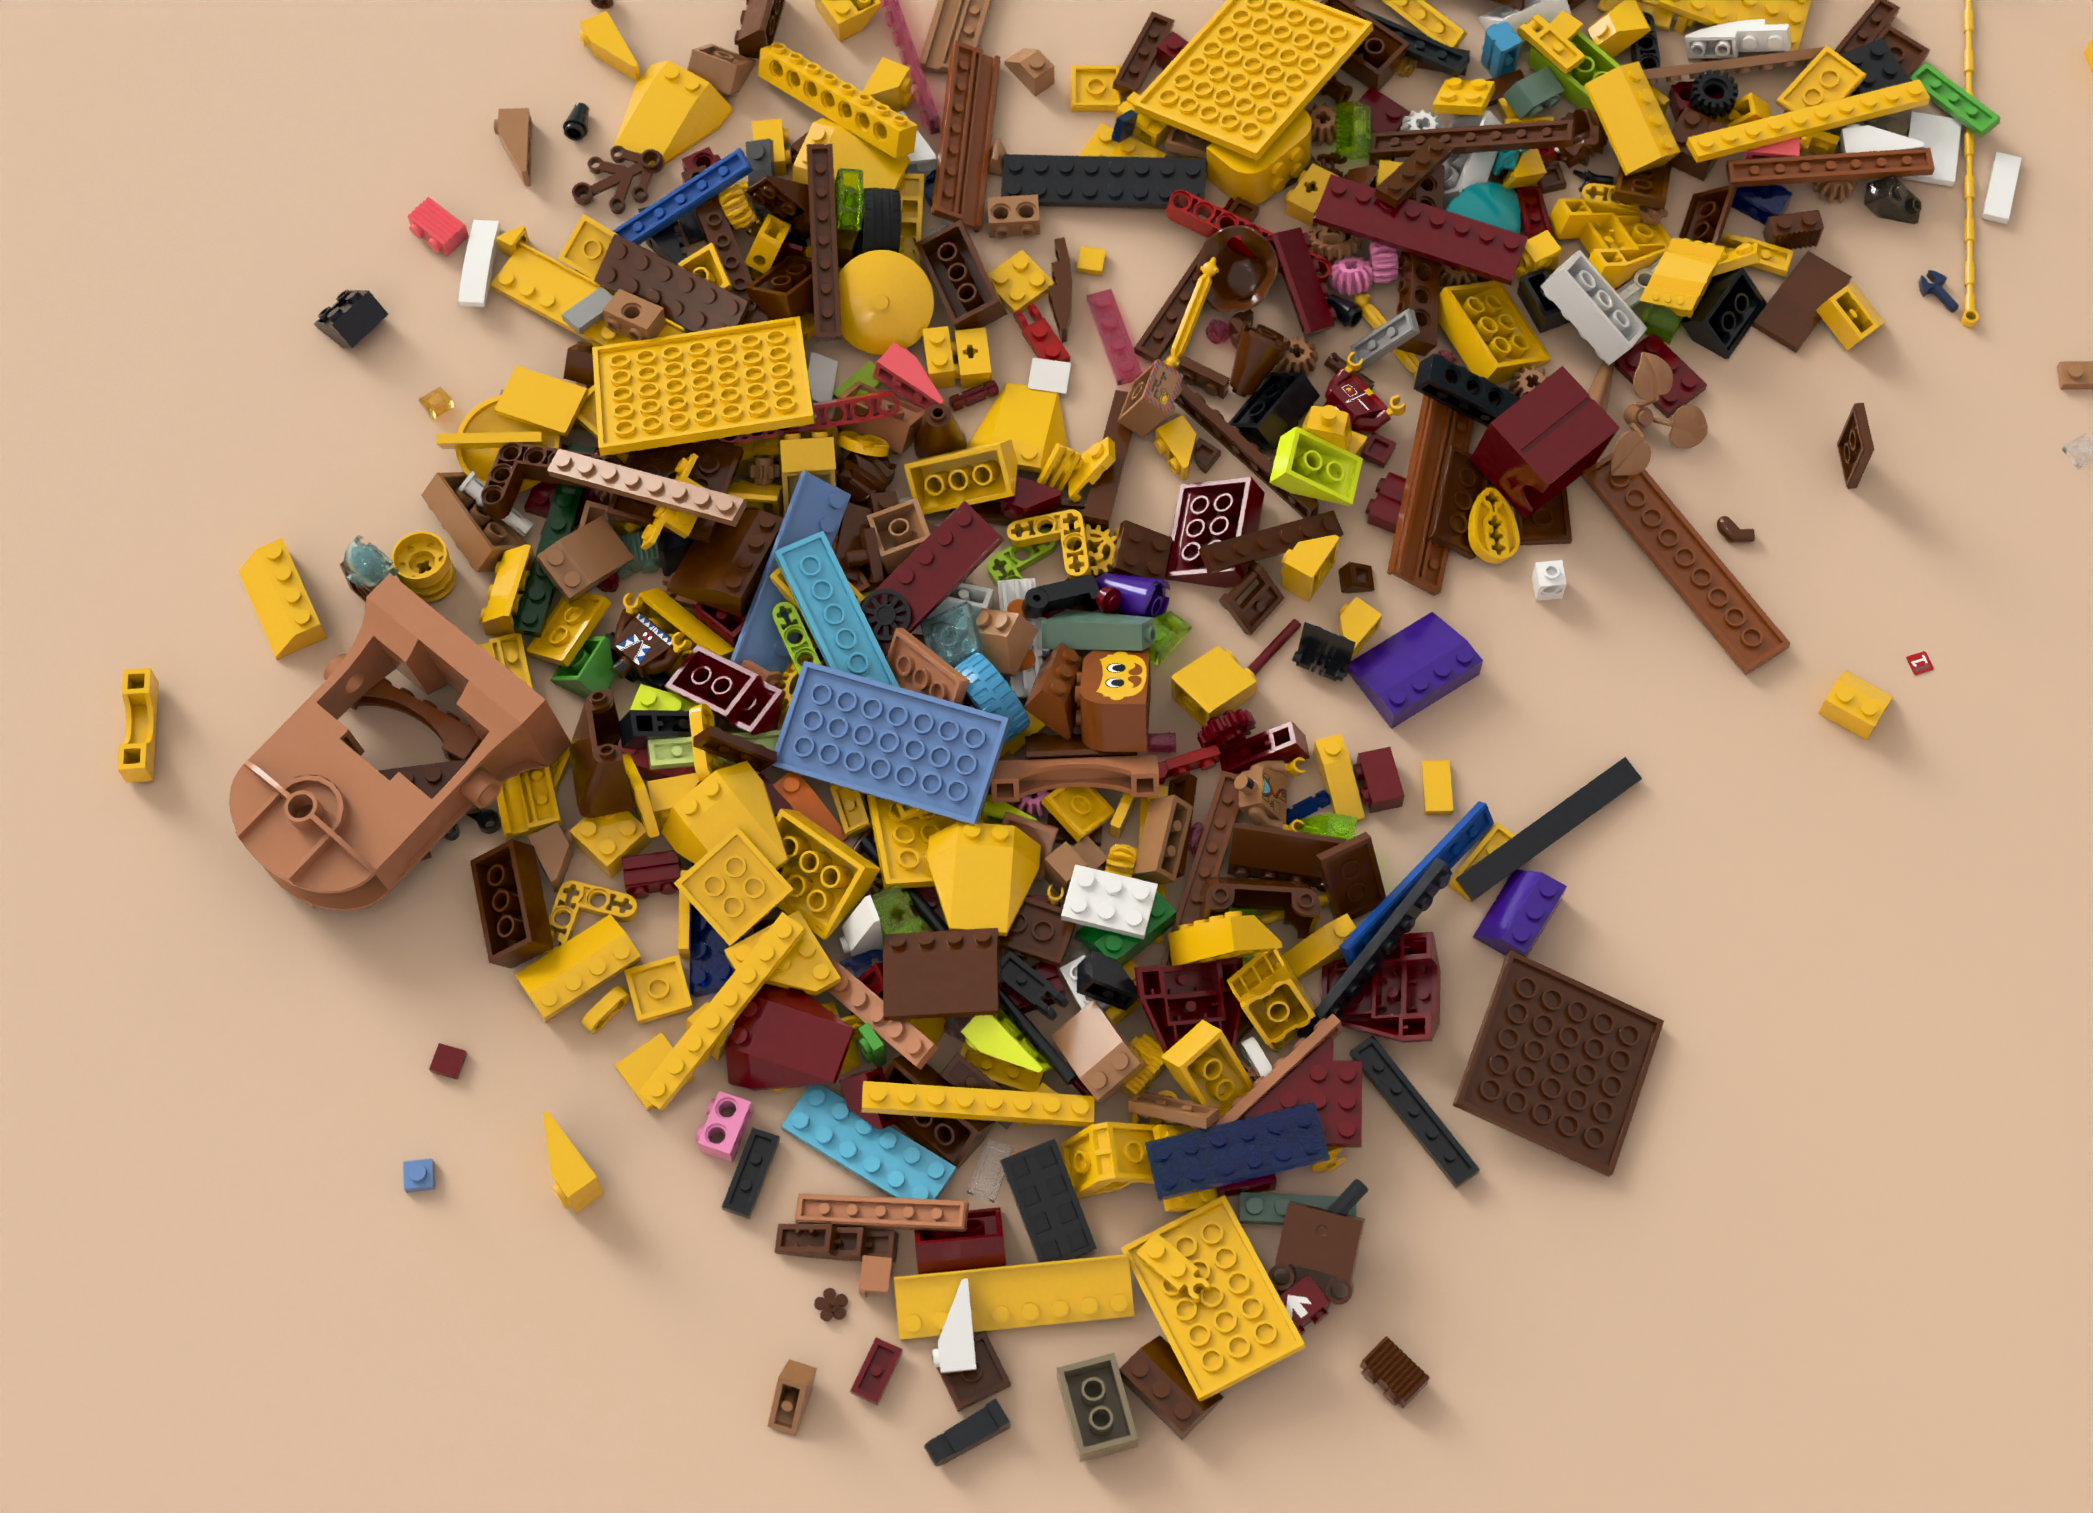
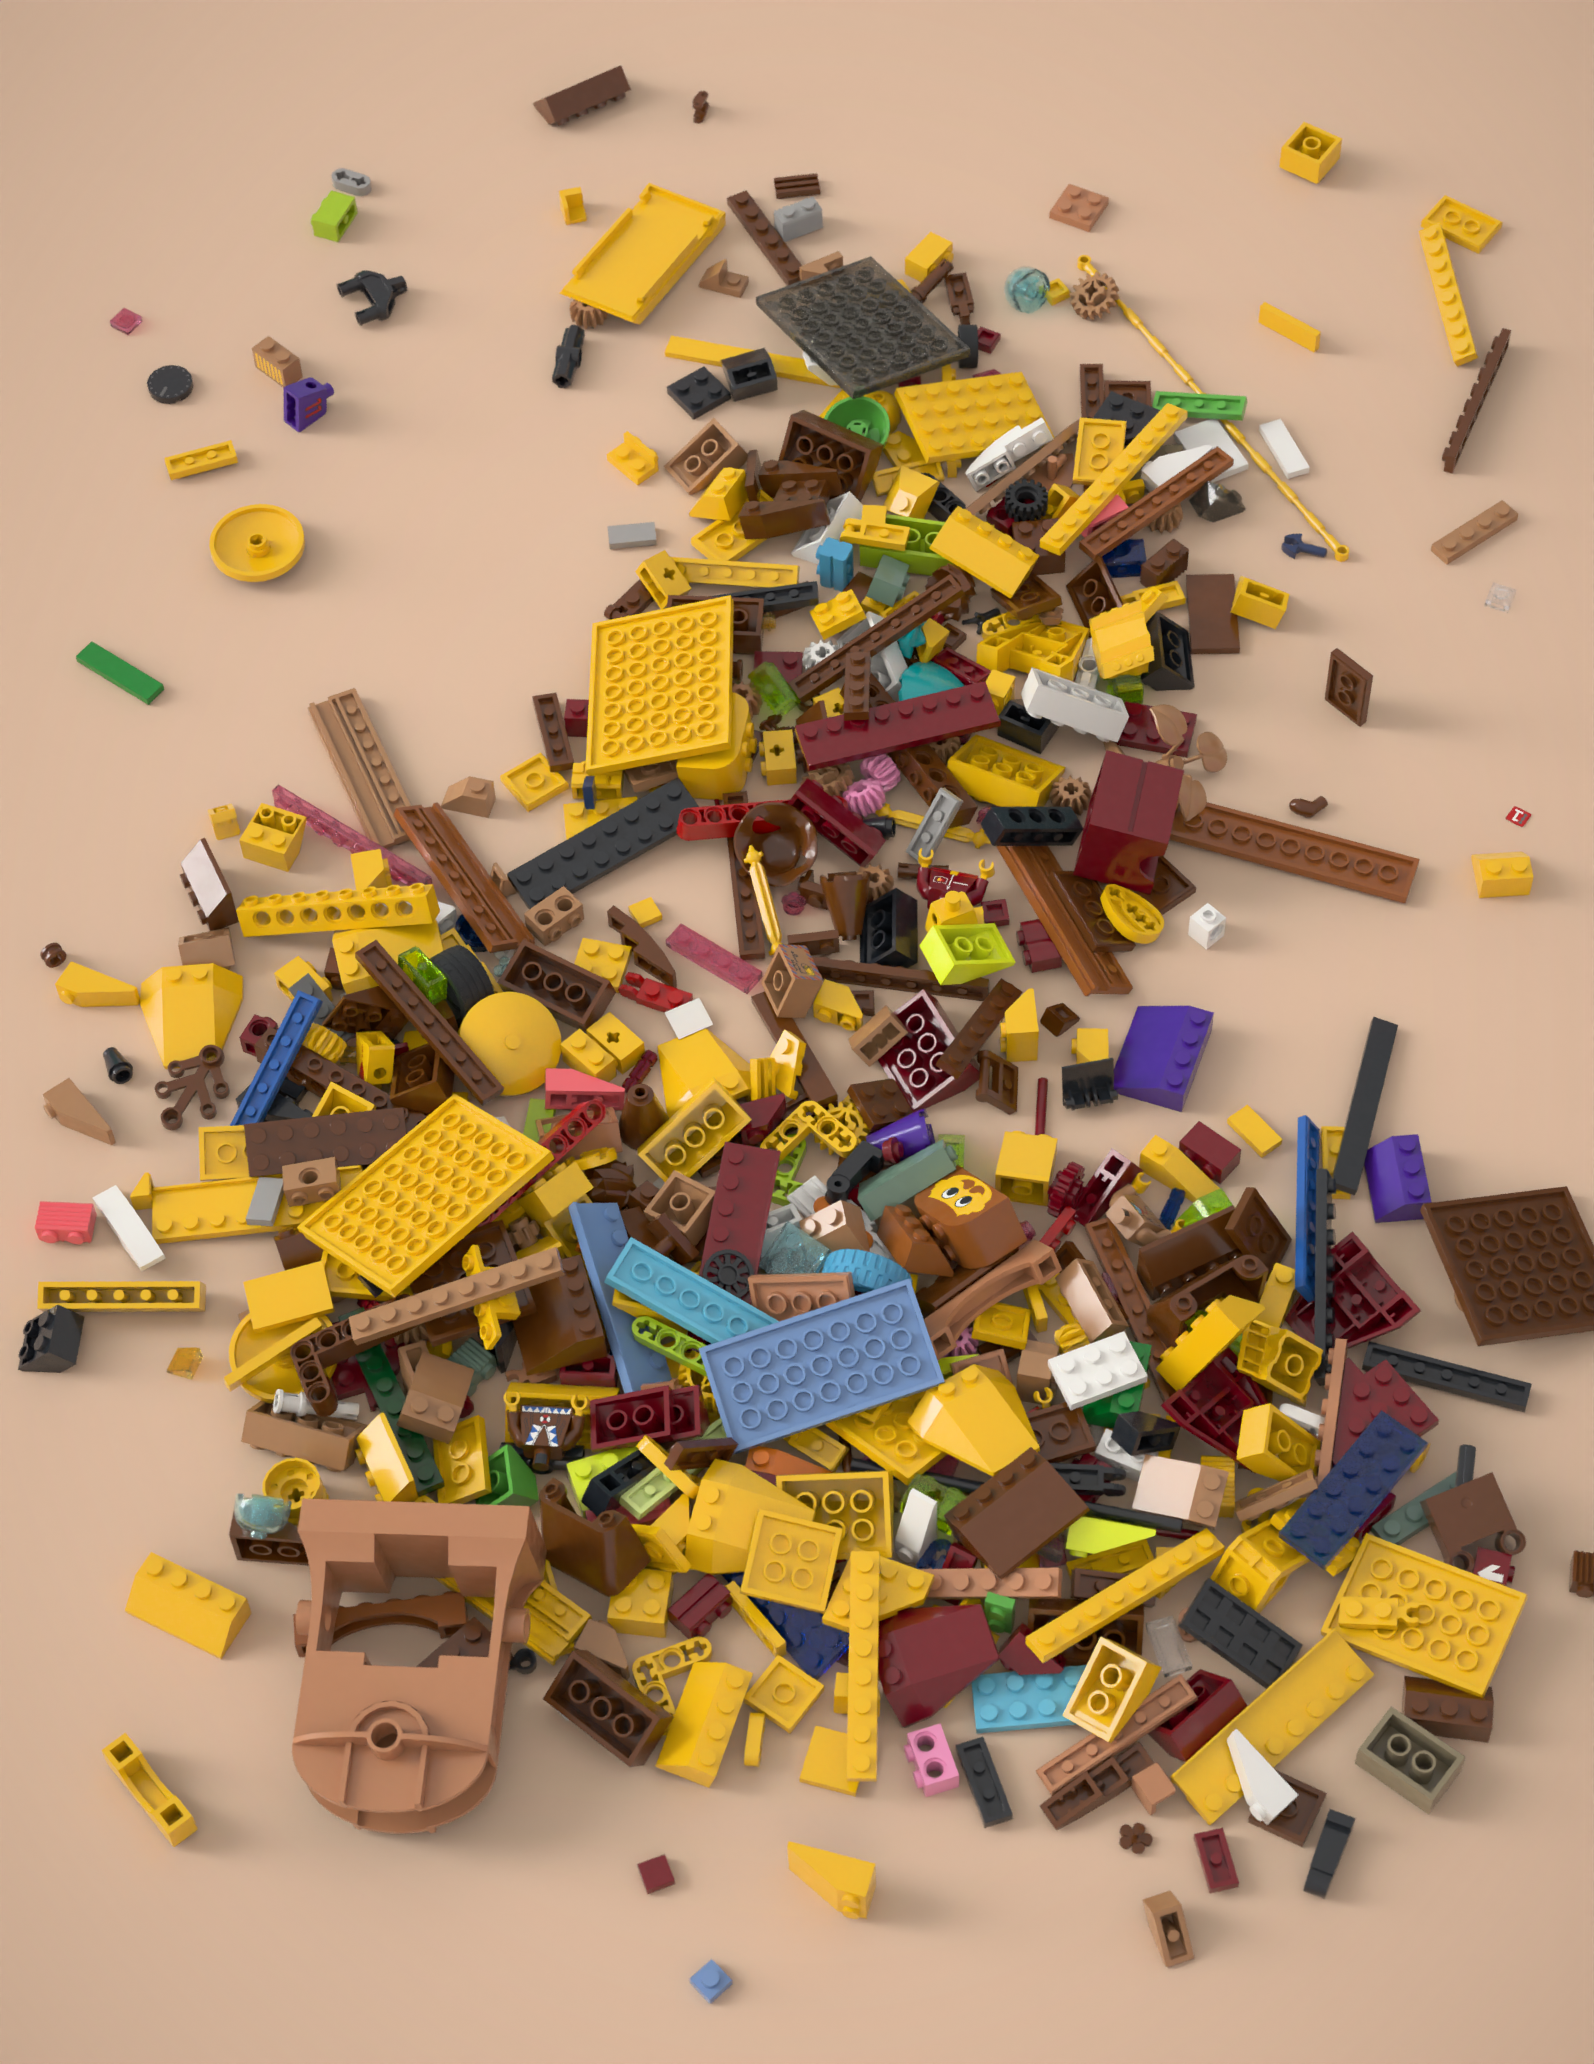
camera: 35 degrees left, 10 degrees down
(427, 316) = (123, 1296): none -> yellow brick
(903, 1172) = (1111, 1689): none -> yellow slope
(1185, 492) = (877, 1036): none -> medium nougat brick
(1769, 83) = (1057, 470): none -> nougat shield

